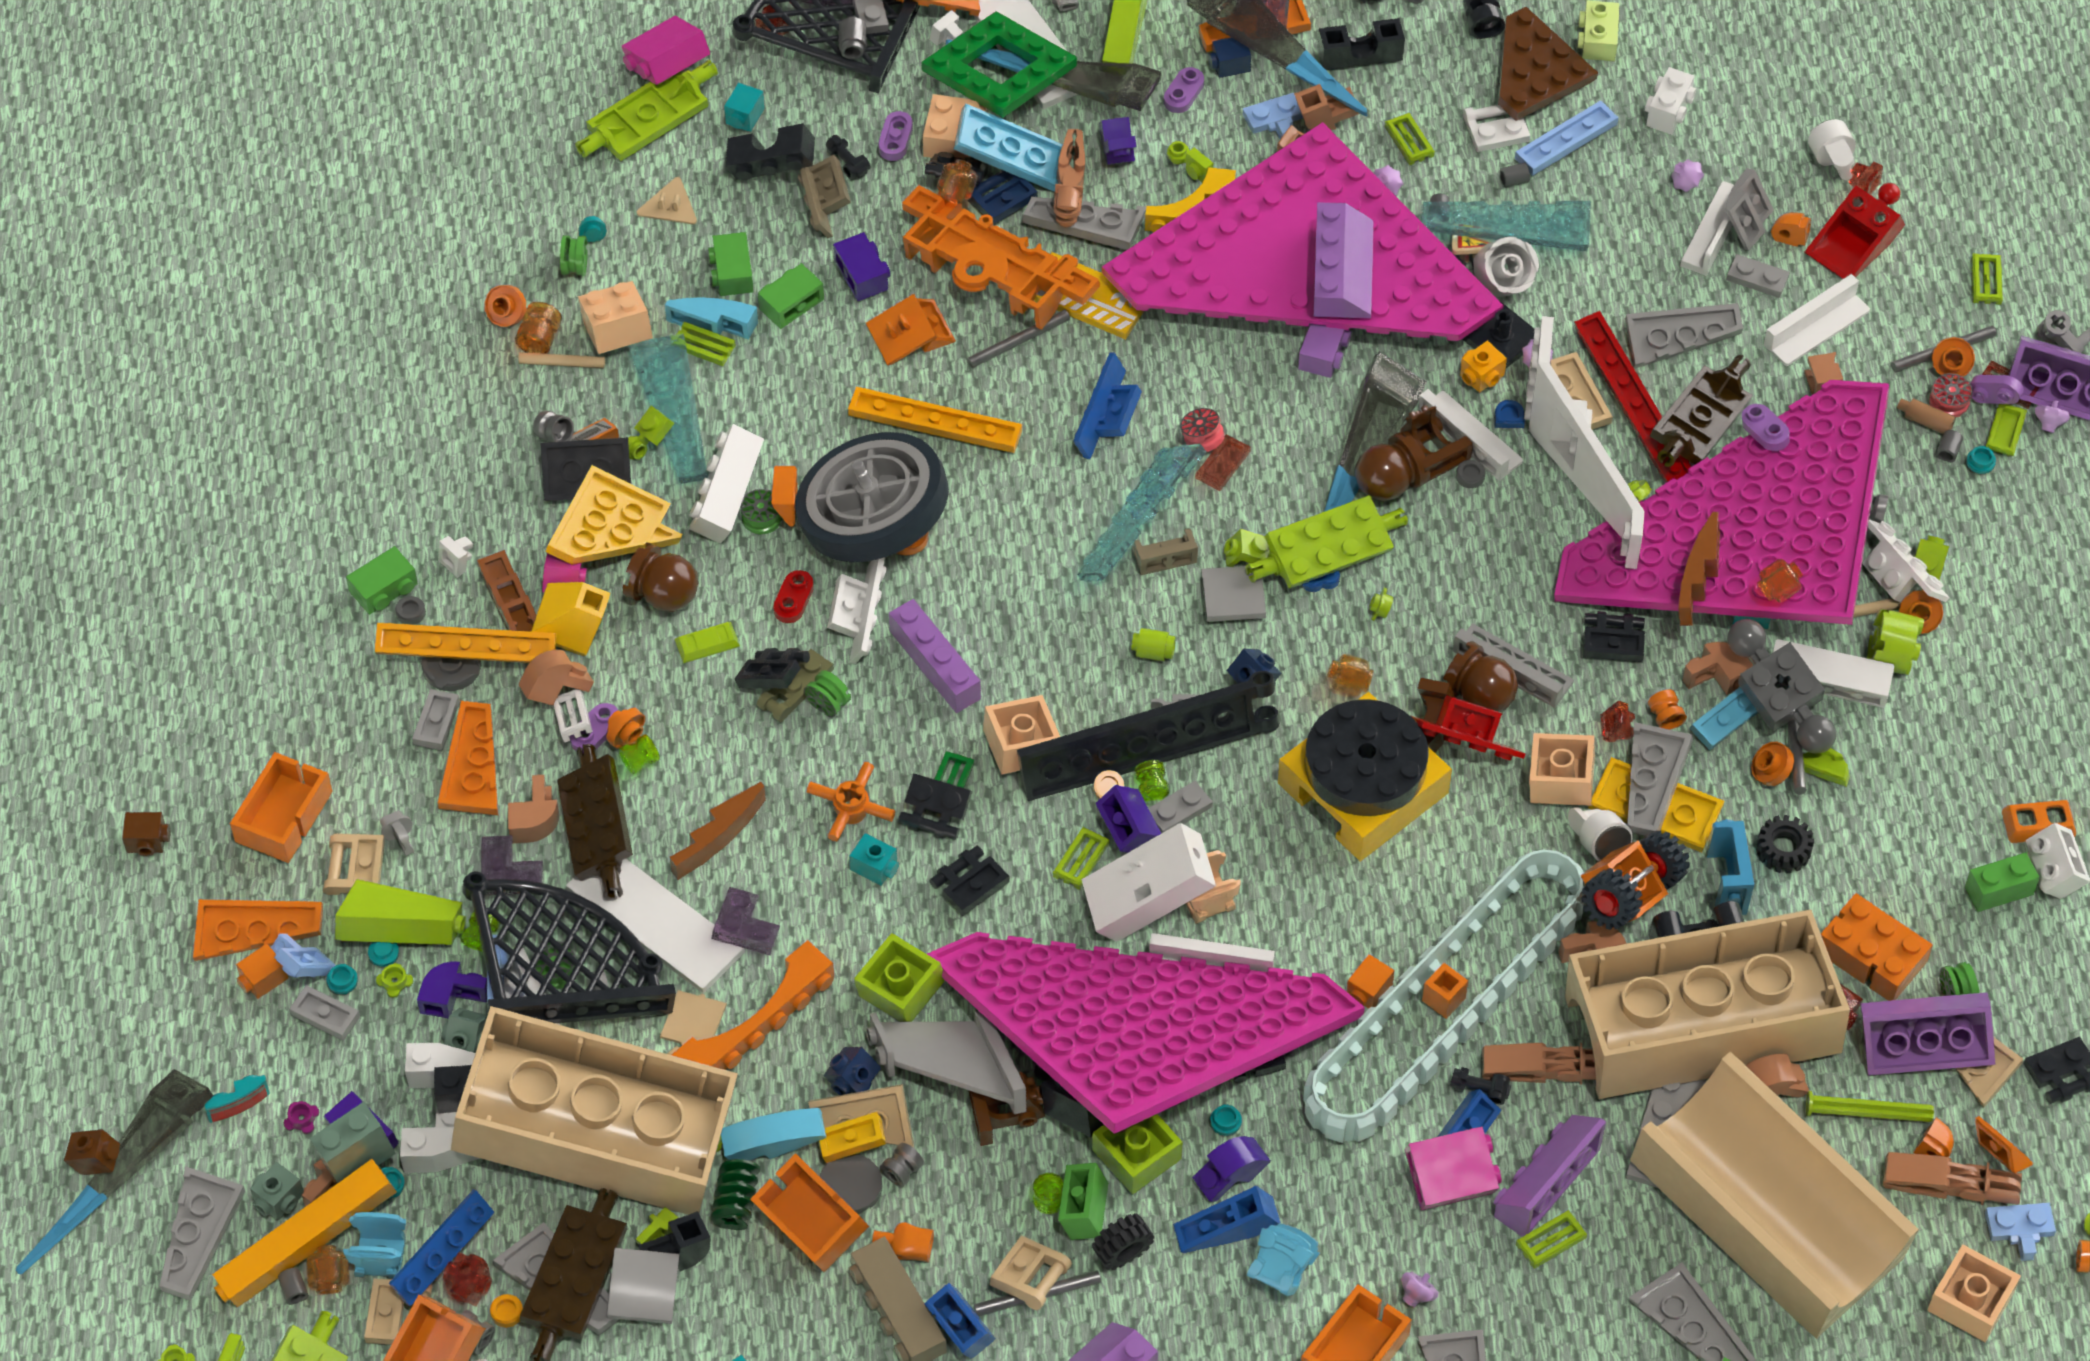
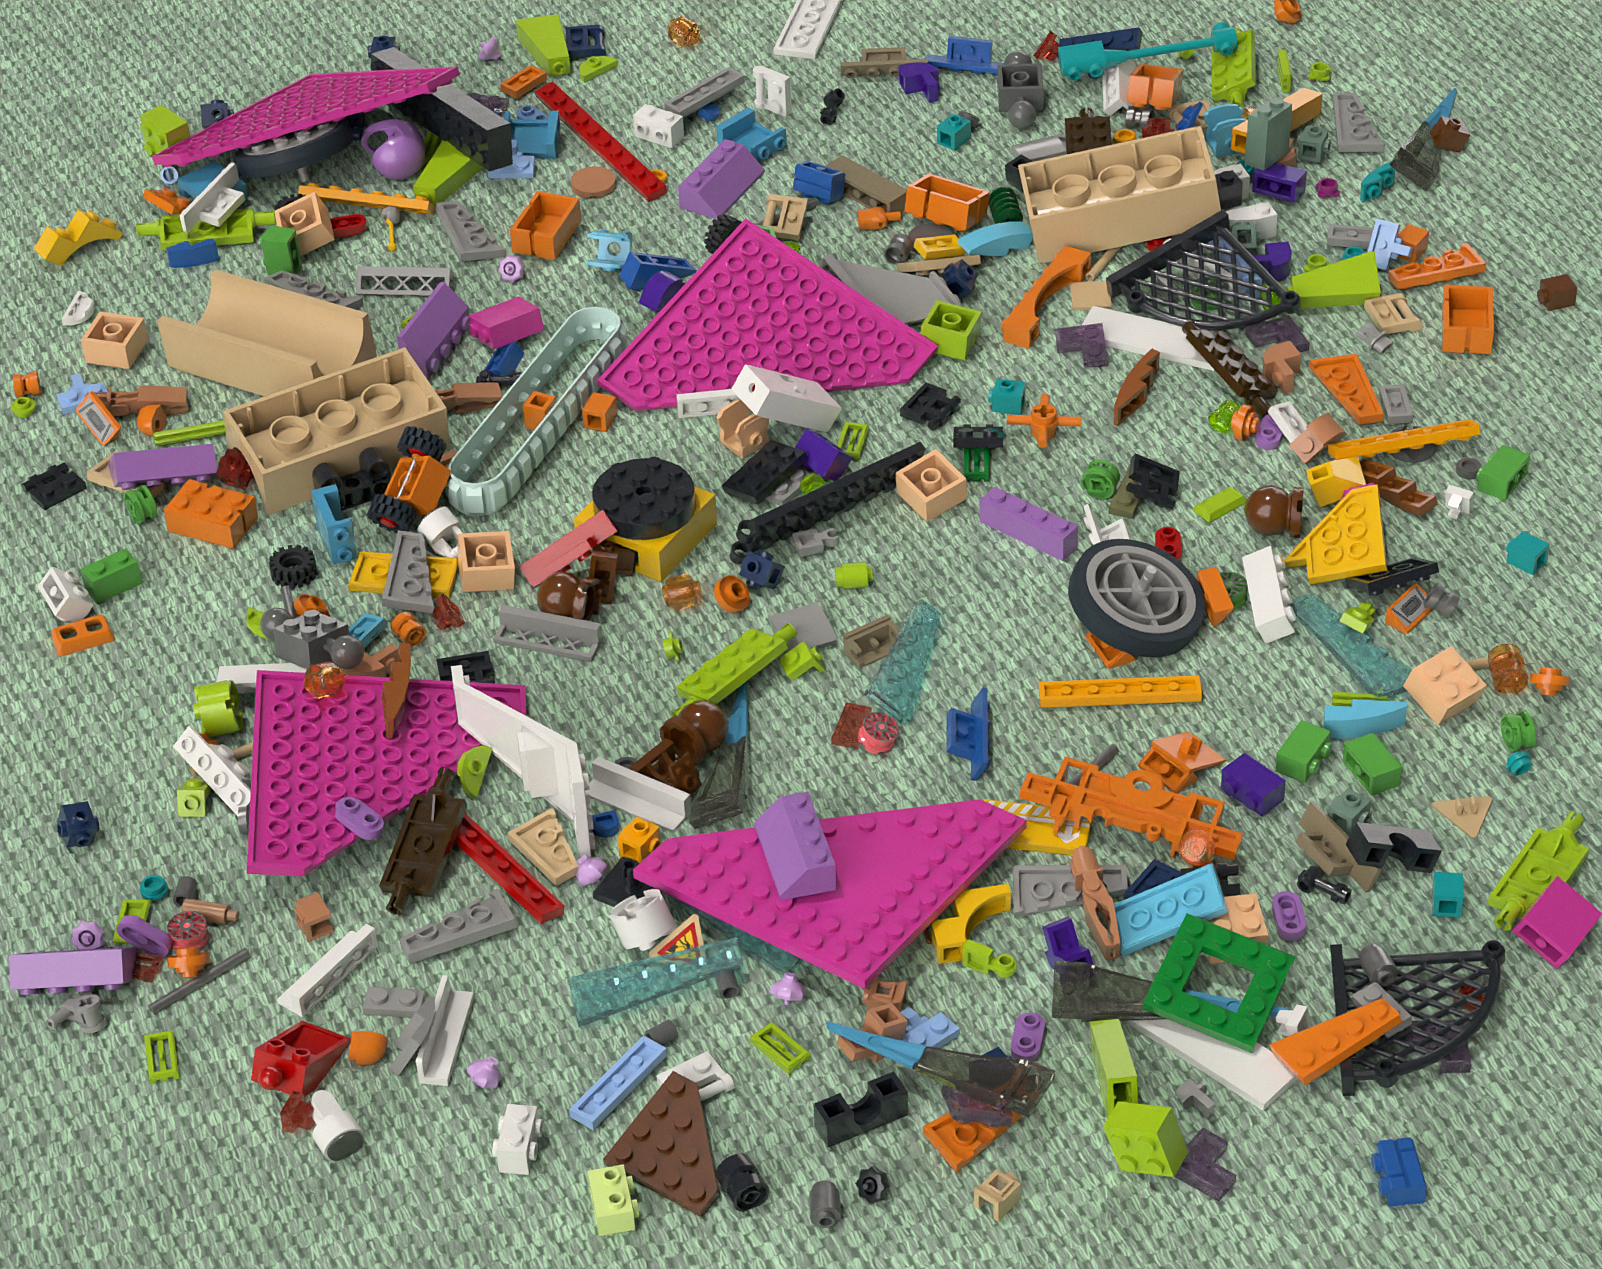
camera: 165 degrees right, 15 degrees down
(425, 467) = (1527, 552): none -> teal brick
(786, 212) = (1349, 809): none -> sand green brick
(1211, 809) = (764, 472): none -> black plate
(1297, 652) = (731, 594): none -> orange plate
(1566, 1317) = (403, 275): none -> light grey fence
(2057, 540) = (77, 824): none -> dark blue brick

